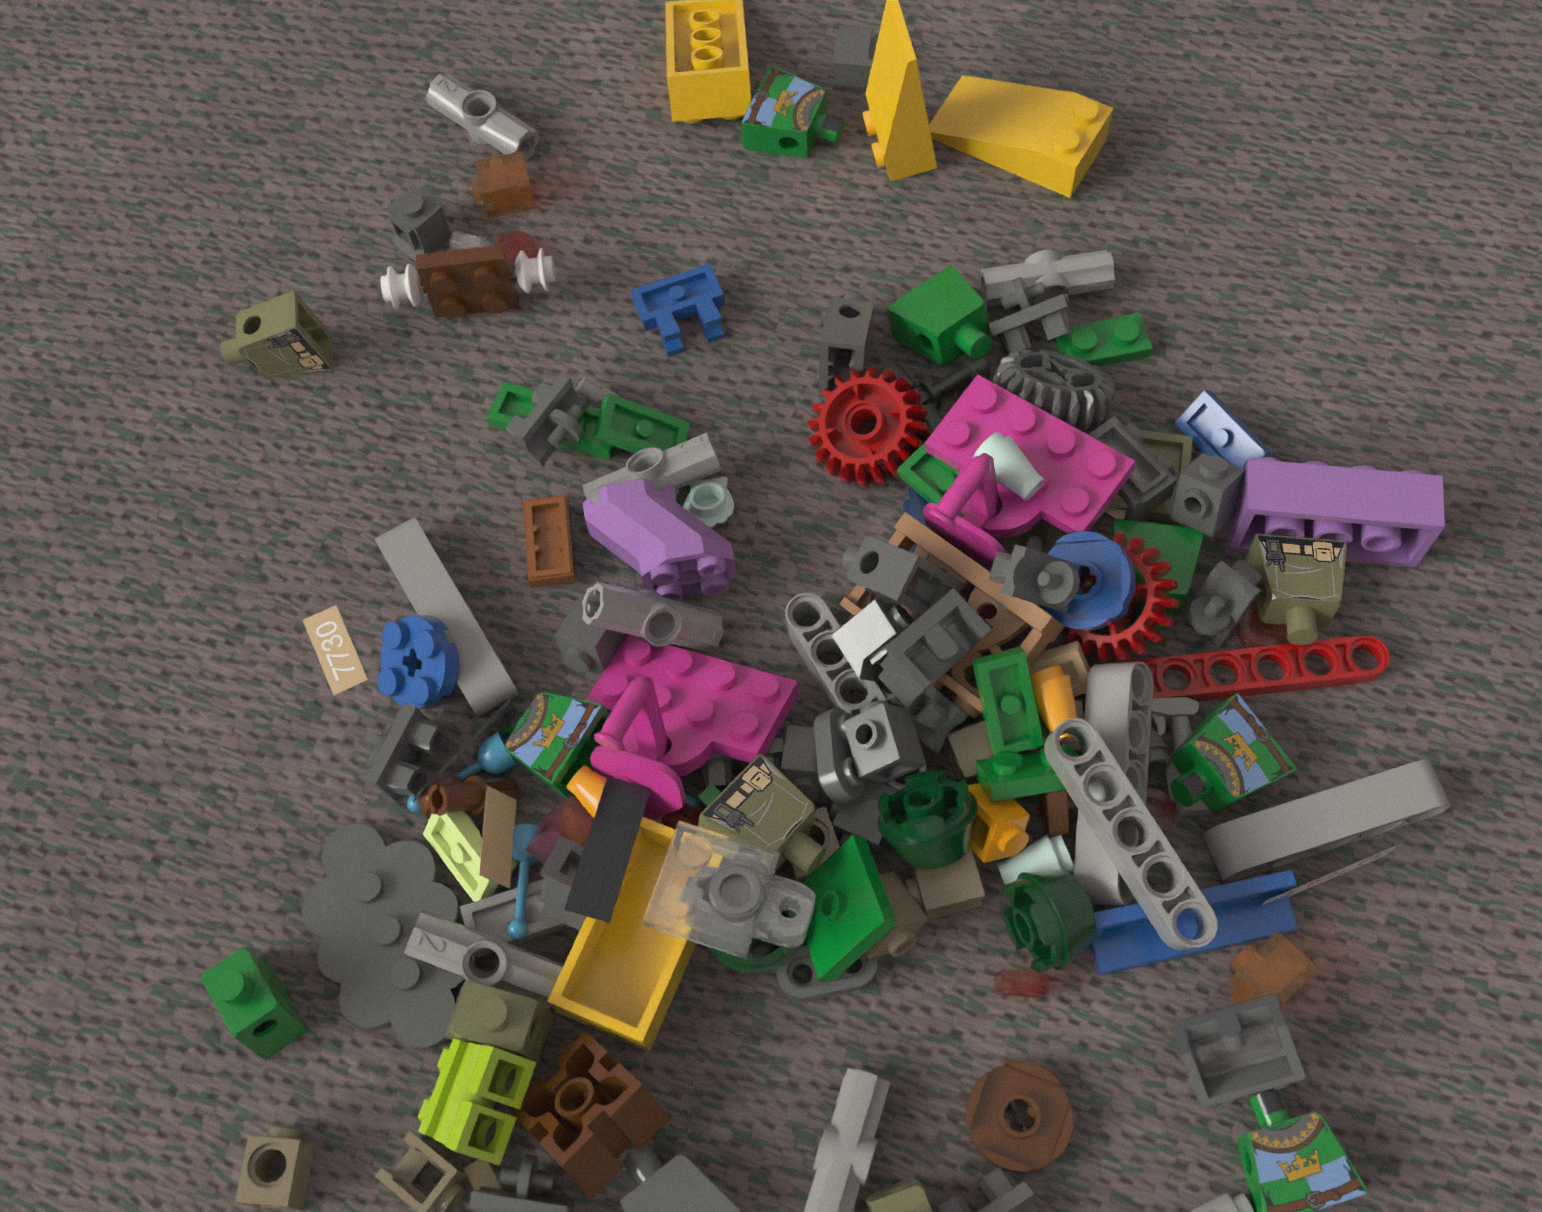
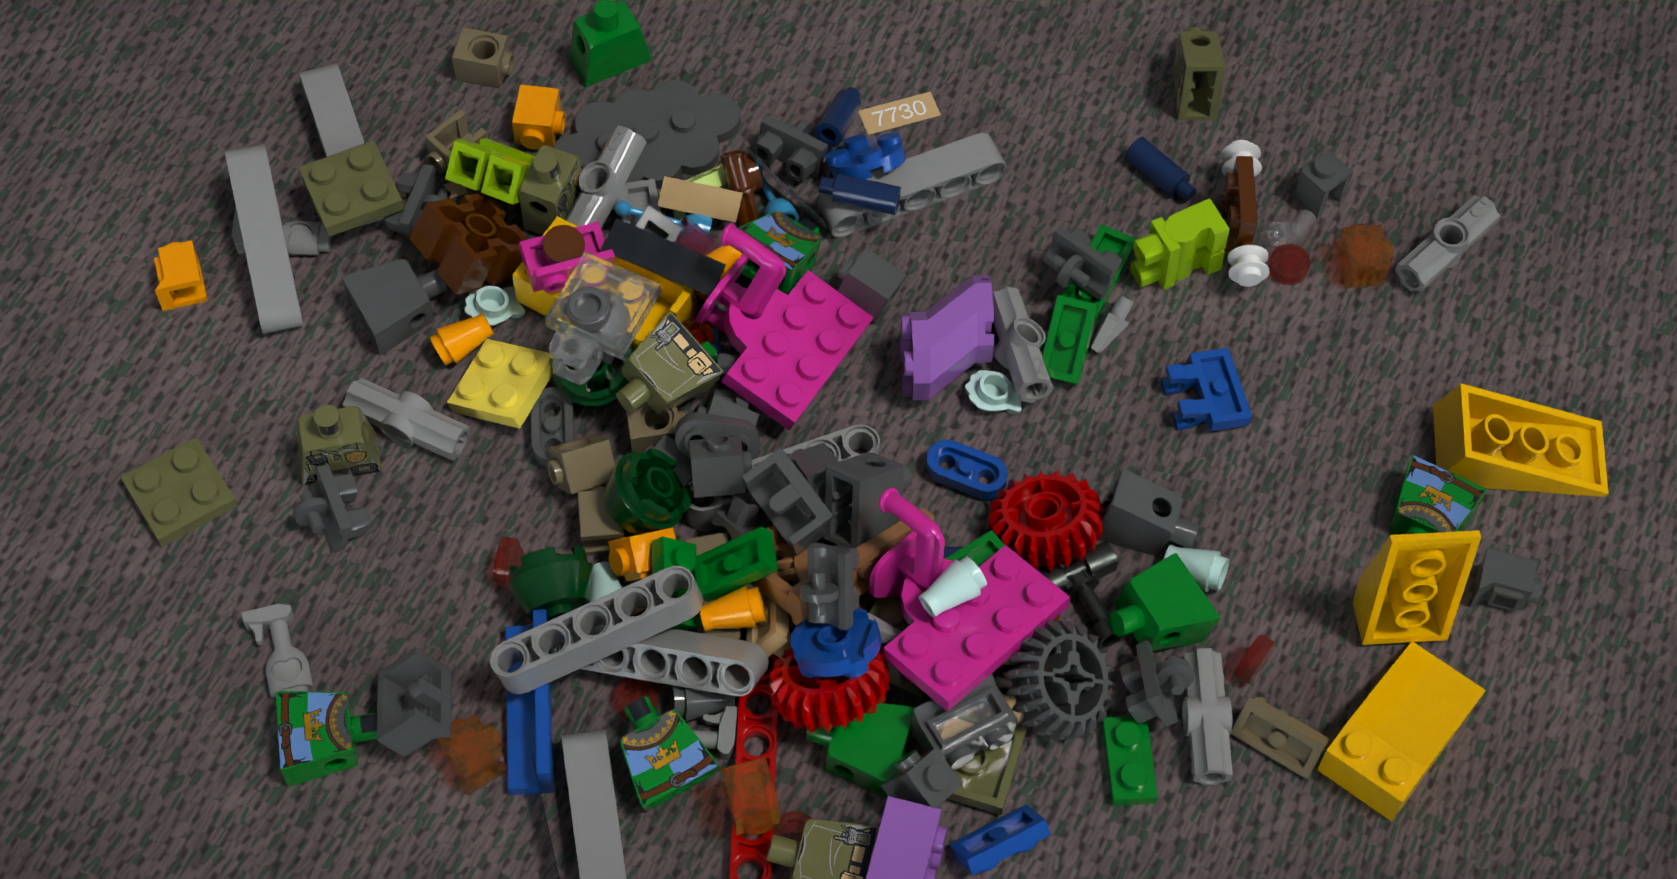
camera: 90 degrees right, 5 degrees down
(354, 704) = (838, 117): none -> dark blue cylinder
(371, 1075) = (537, 117): none -> light orange brick
(405, 373) = (1160, 169): none -> dark blue cylinder
(479, 649) = (862, 193): none -> dark blue cylinder
(514, 332) = (1180, 245): none -> lime hips
(549, 541) = (958, 262): dark orange plate -> none
(613, 968) = (563, 244): none -> reddish brown tile
(621, 968) = (554, 276): none -> dark pink bracket
(633, 611) = (870, 319): light grey piece -> none
(664, 1076) = (494, 303): none -> light aqua animal
(721, 1106) = (461, 338): none -> light orange cone
(777, 1040) = (502, 383): none -> light yellow plate
(809, 519) = (968, 468): none -> blue plate
(848, 909) = (588, 424): green plate -> none
(883, 290) = (1205, 566): none -> light aqua cone
(978, 244) = (1254, 659): none -> clear red tile
(1046, 1104) = (412, 567): reddish brown plate -> none
(1054, 218) = (1280, 736): none -> dark tan plate
(1223, 600) = (814, 784): dark grey hips -> none
(1262, 656) = (751, 797): none -> clear orange brick

